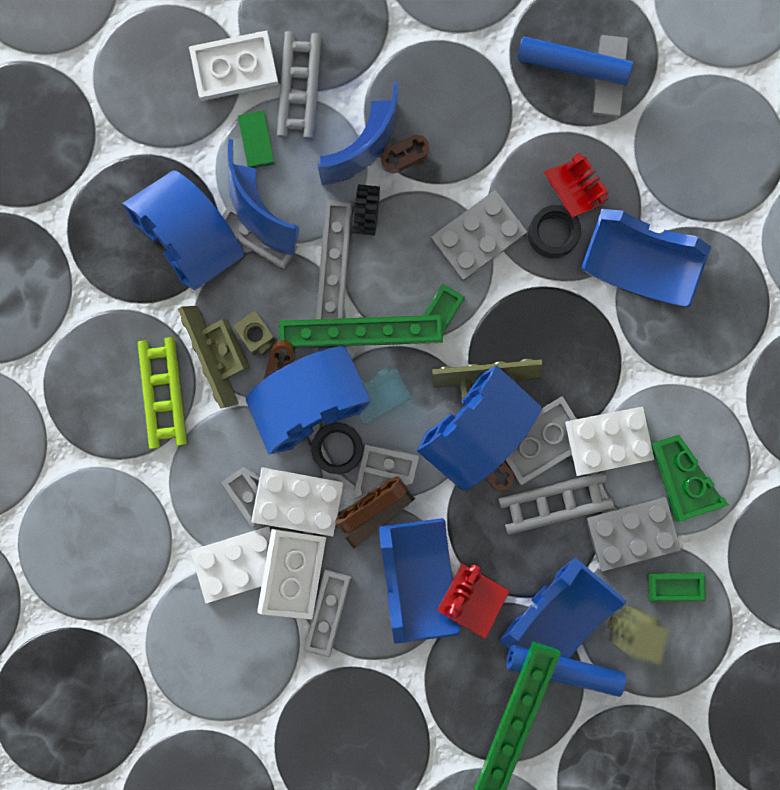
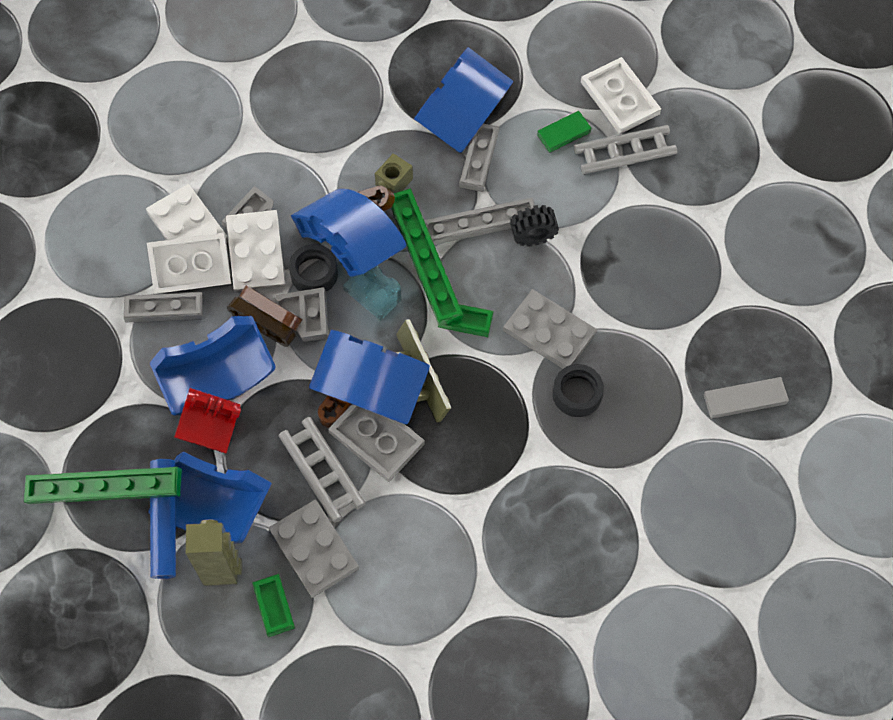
camera: 70 degrees right, 20 degrees down
(152, 407) = (313, 138): lime bar -> none
(217, 353) = (365, 152): olive bracket -> none
(252, 211) = (511, 128): blue panel -> none
(366, 147) = (594, 212): blue panel -> none
(402, 148) = (598, 249): reddish brown beam -> none
(575, 60) = (744, 358): blue piece -> none
(575, 187) = (626, 392): red hinge -> none
(609, 441) = (395, 495): white plate -> none
(645, 261) = (579, 473): blue panel -> none
(684, 481) = (380, 579): green wing -> none

